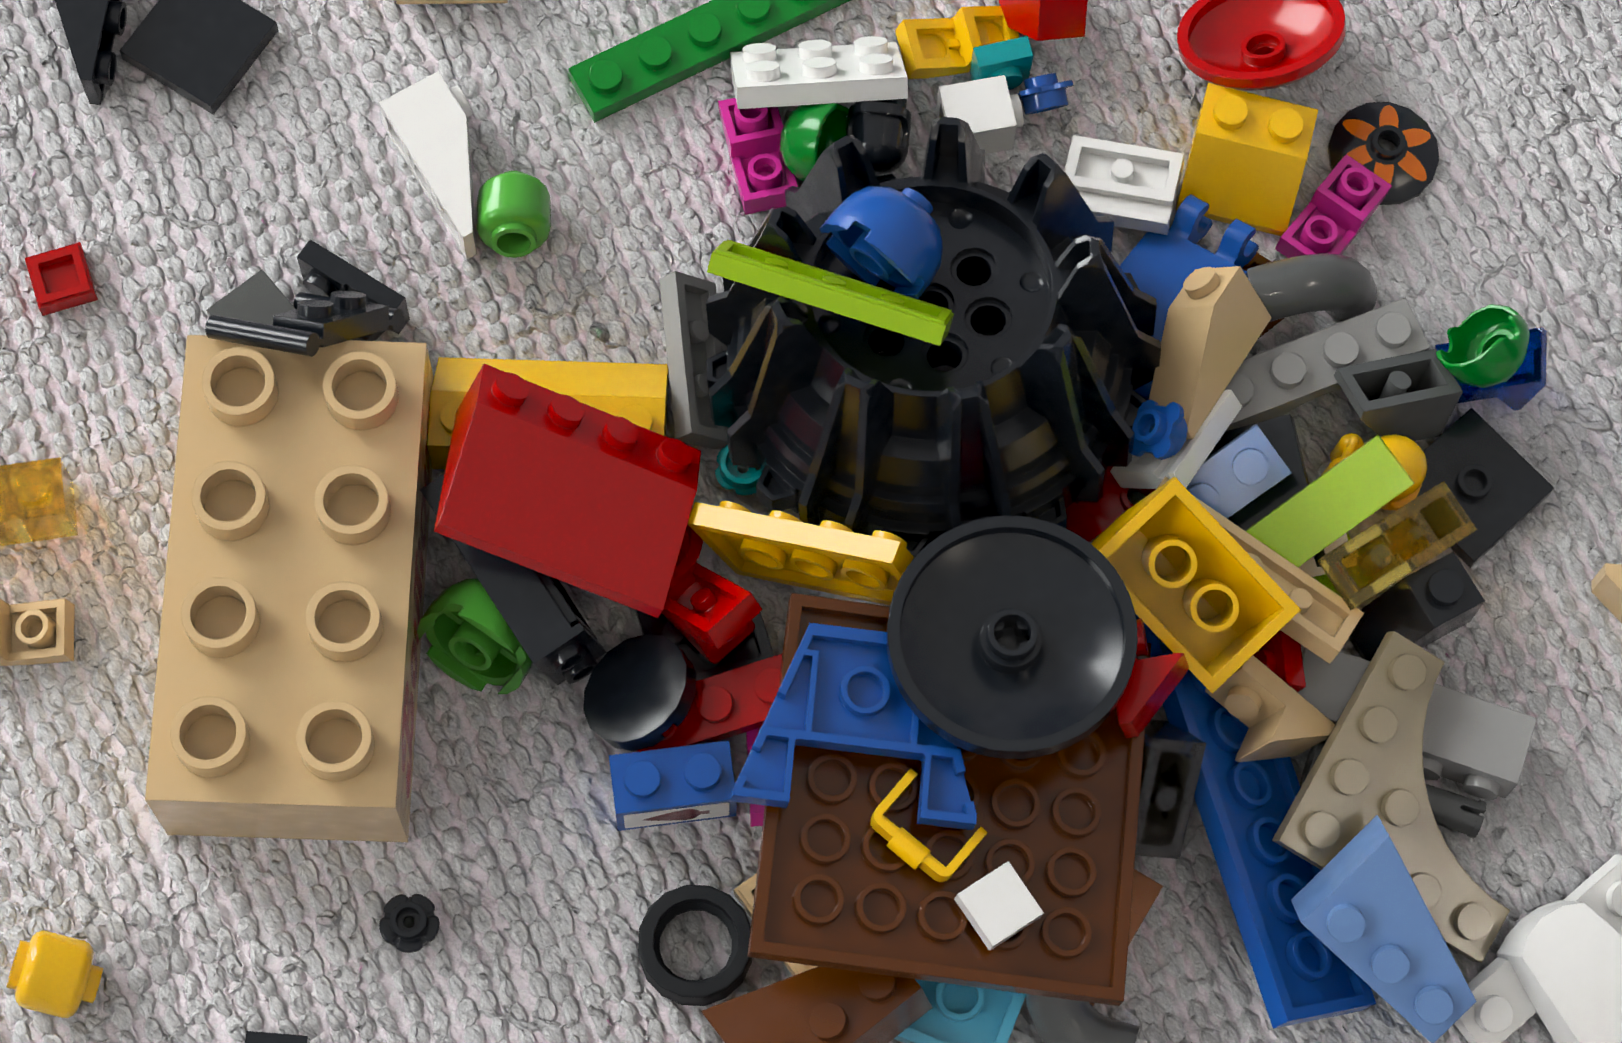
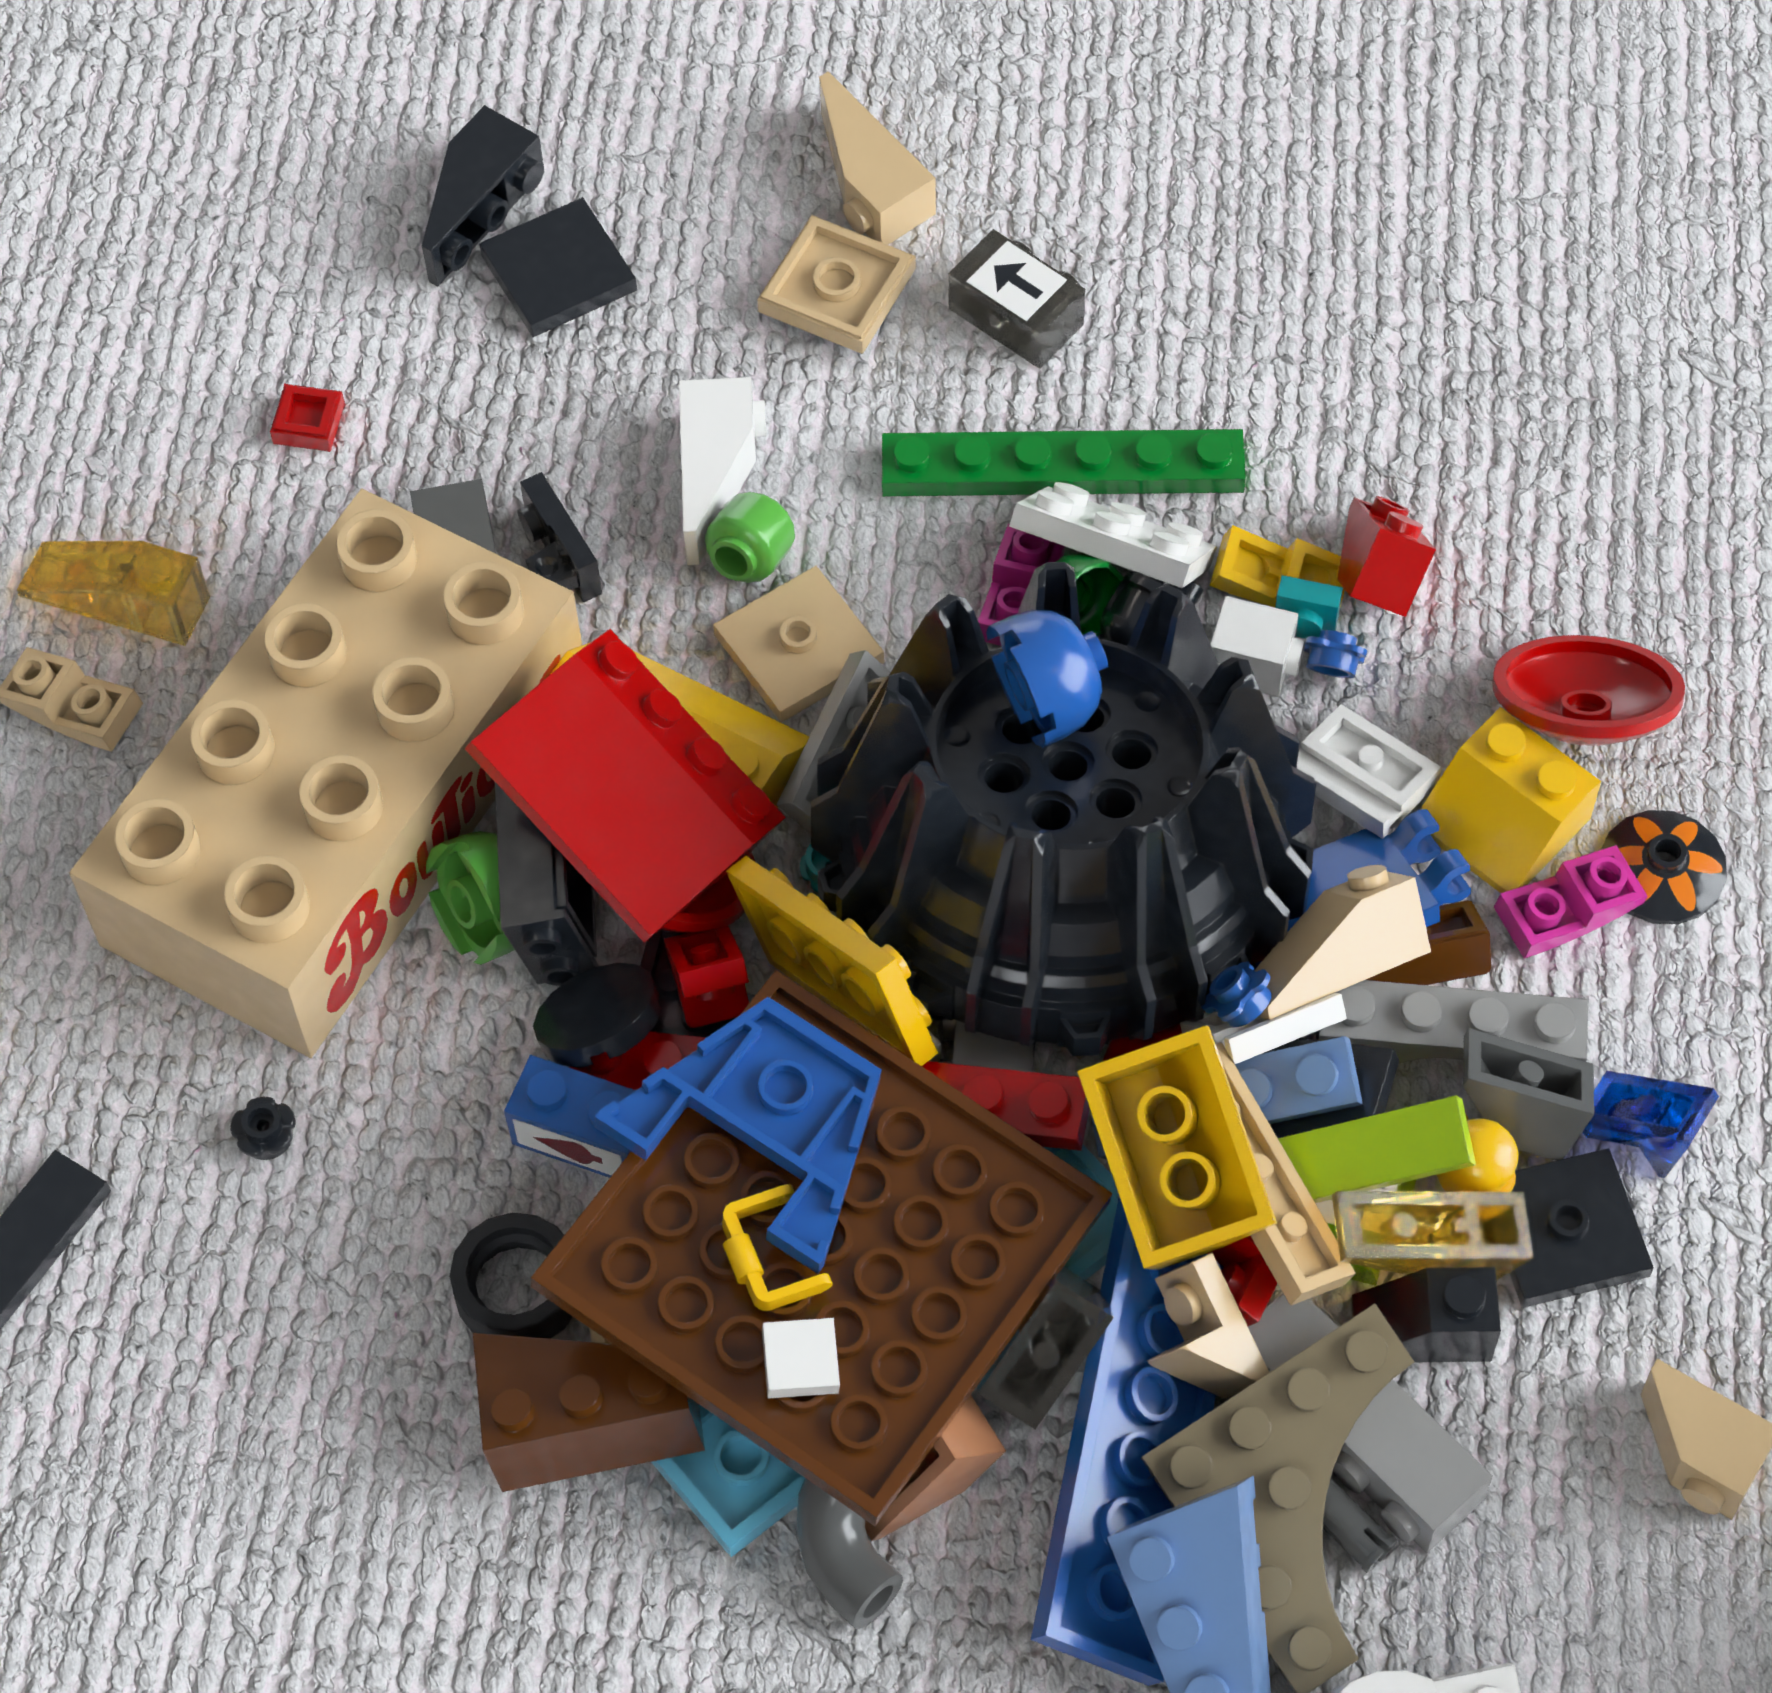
camera: 35 degrees right, 10 degrees down
(312, 324) = (483, 529): black plate -> none
(602, 286) = (795, 642): none -> tan plate
(831, 291) = (962, 695): lime tile -> none
(1011, 637) = (954, 1100): black dish -> none
(1148, 686) = (1068, 1209): red slope -> none
(1314, 284) = (1499, 944): dark grey cylinder -> none
(1486, 346) = (1642, 1082): green hair -> none

